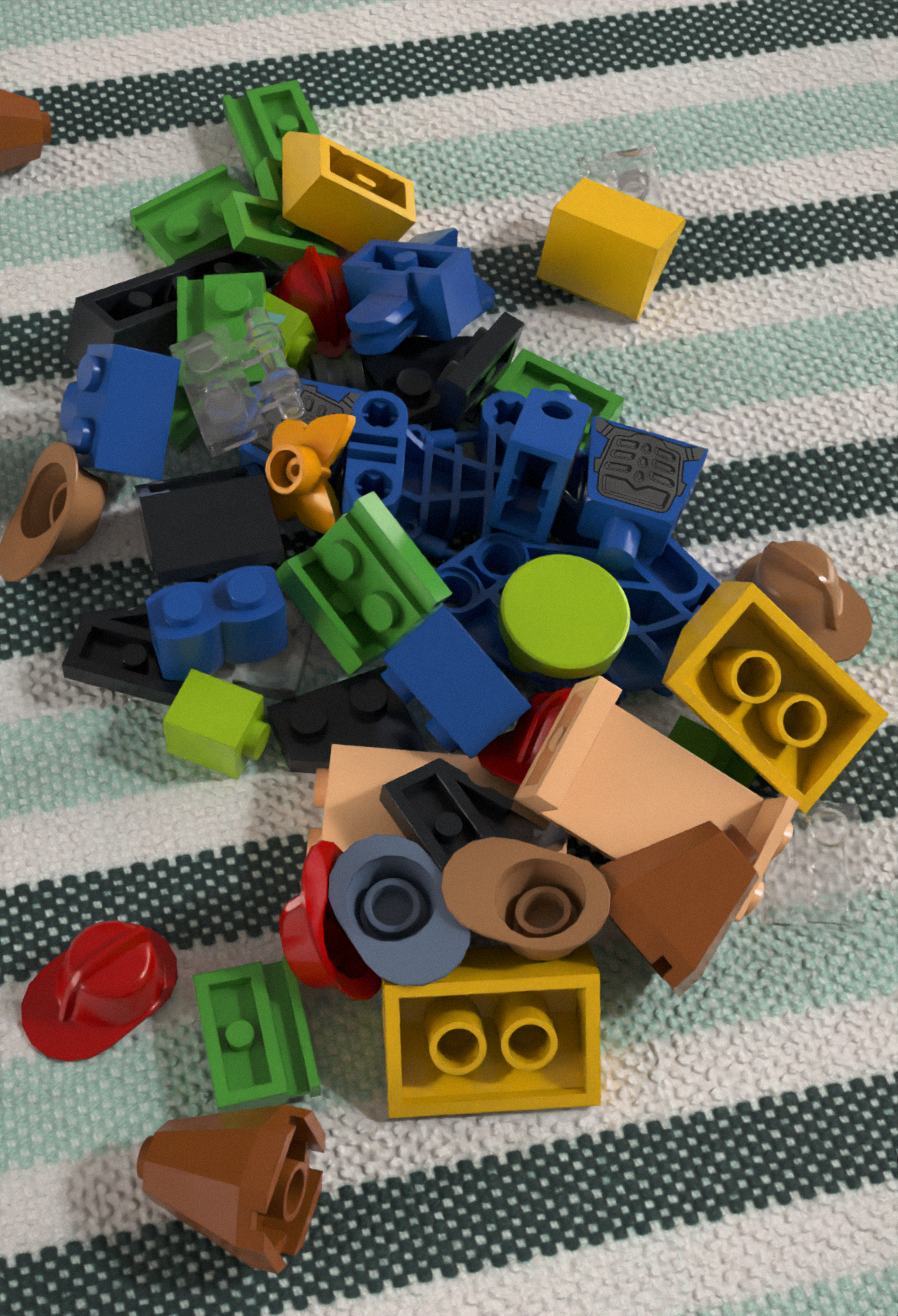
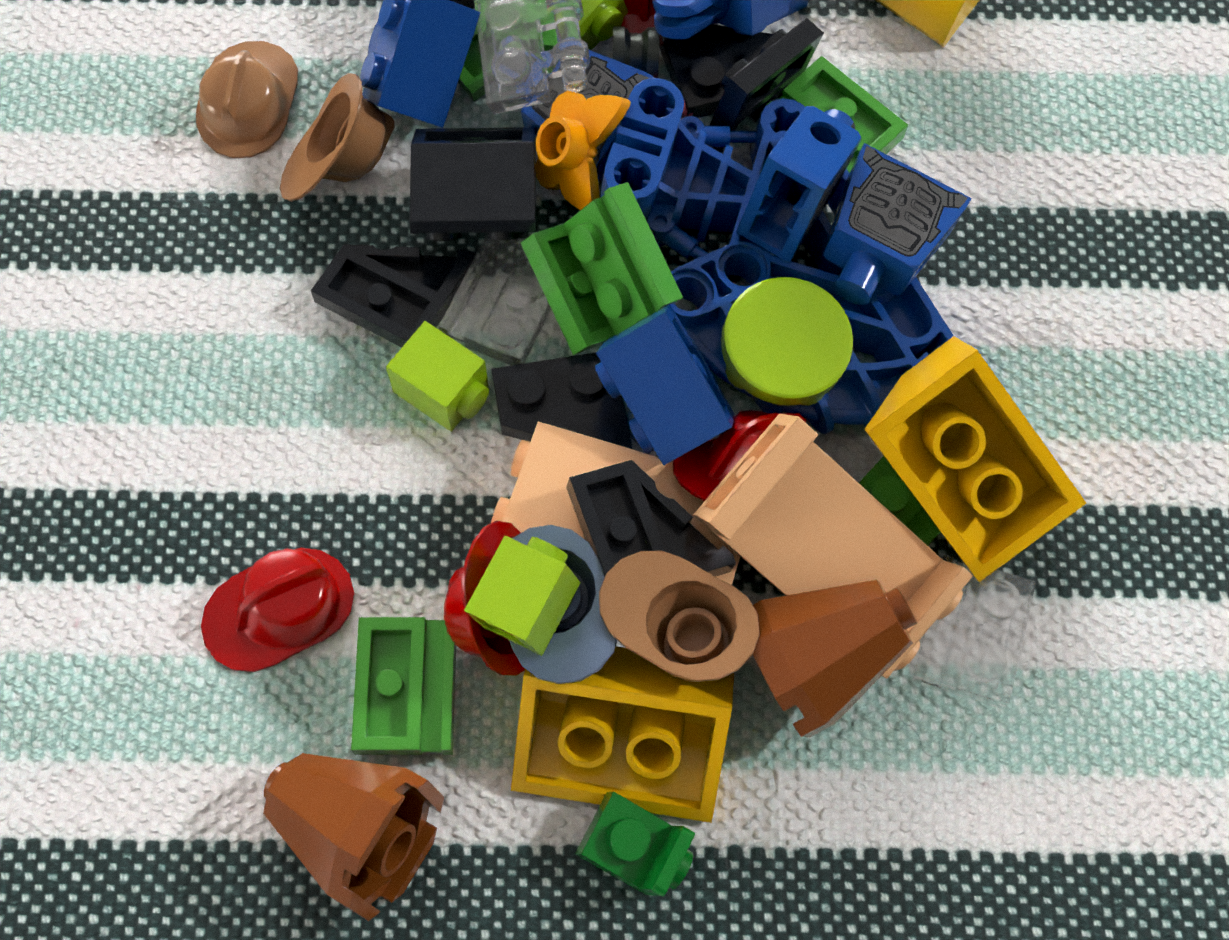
camera: 15 degrees right, 10 degrees up
(229, 620) = (457, 280): blue brick -> none
(369, 901) = (524, 593): none -> lime brick
(533, 1141) = (637, 846): none -> green bracket
(810, 592) = (1038, 363): medium nougat piece -> none

